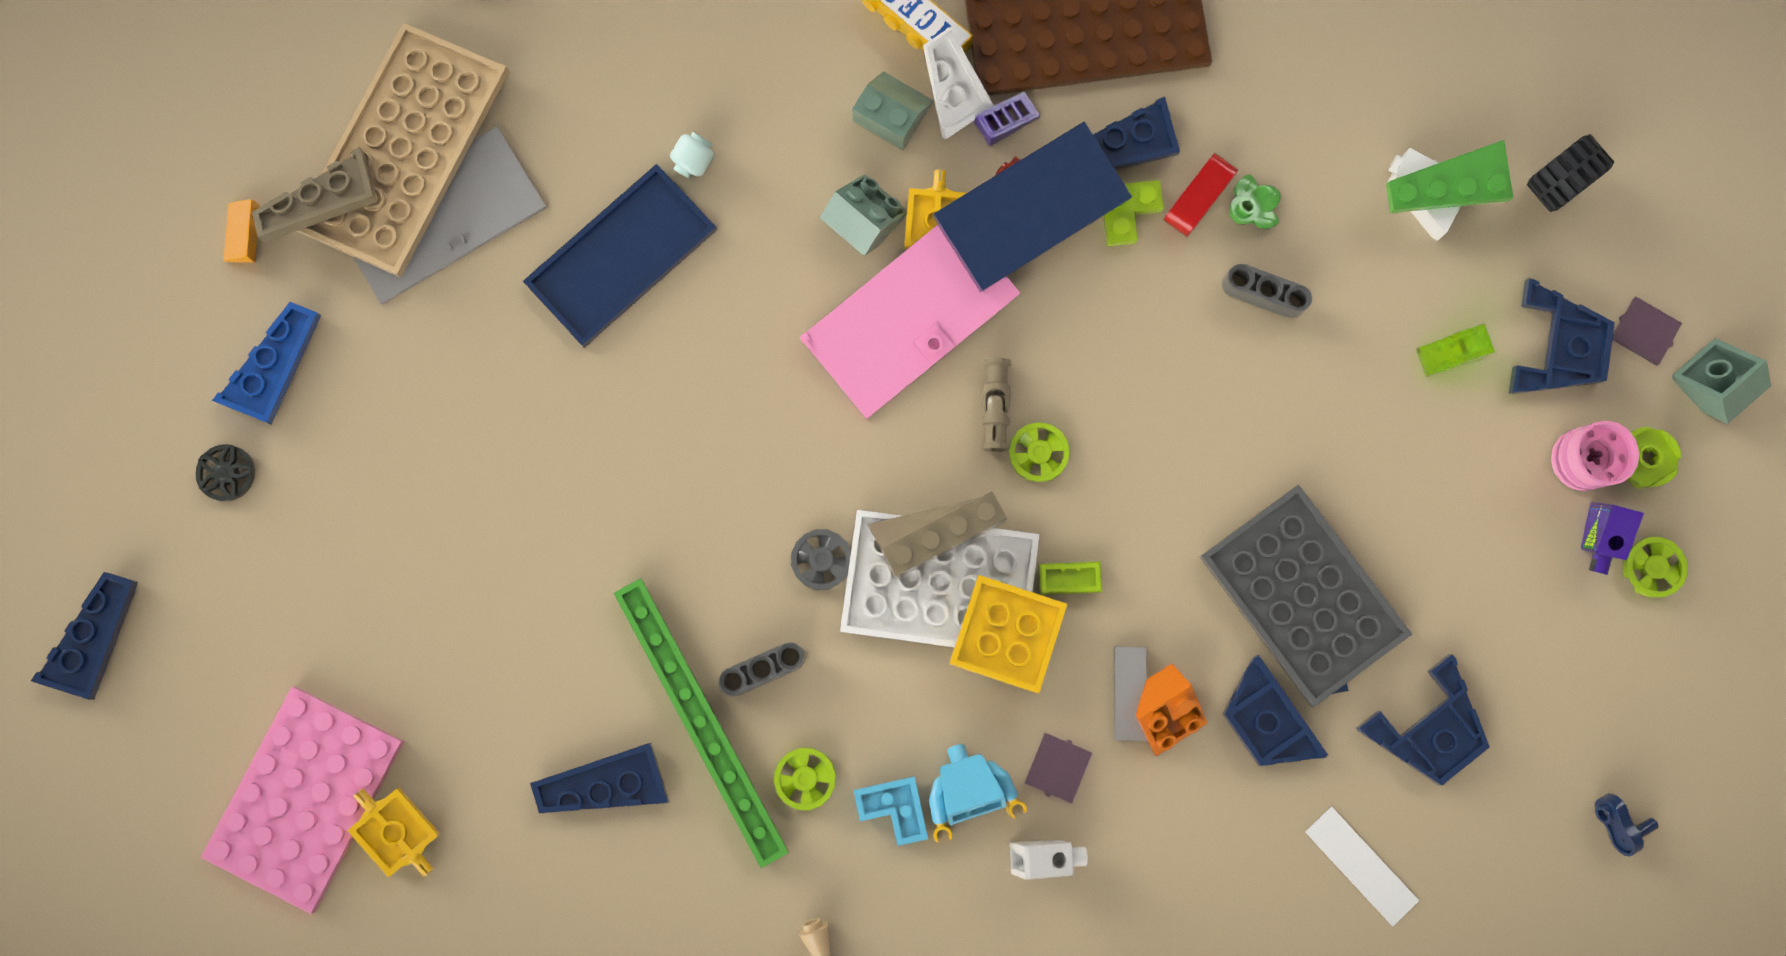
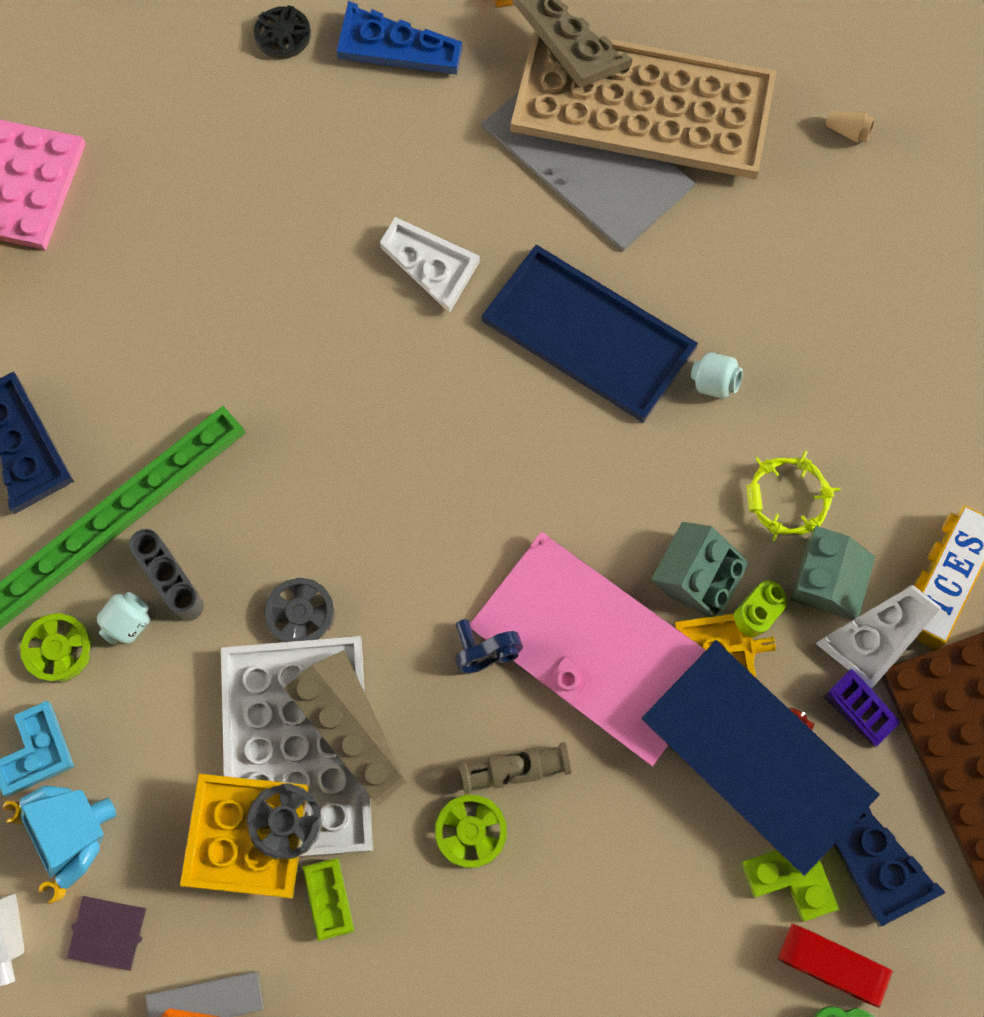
camera: 80 degrees right, 10 degrees down
(514, 379) = (430, 260): none -> white wing
(794, 713) = (123, 618): none -> light aqua head
(811, 153) = (755, 501): none -> neon yellow piece
(896, 391) = (475, 658): none -> dark blue piece
(908, 173) = (760, 608): none -> lime plate
(1005, 597) = (284, 821): none -> dark grey piece

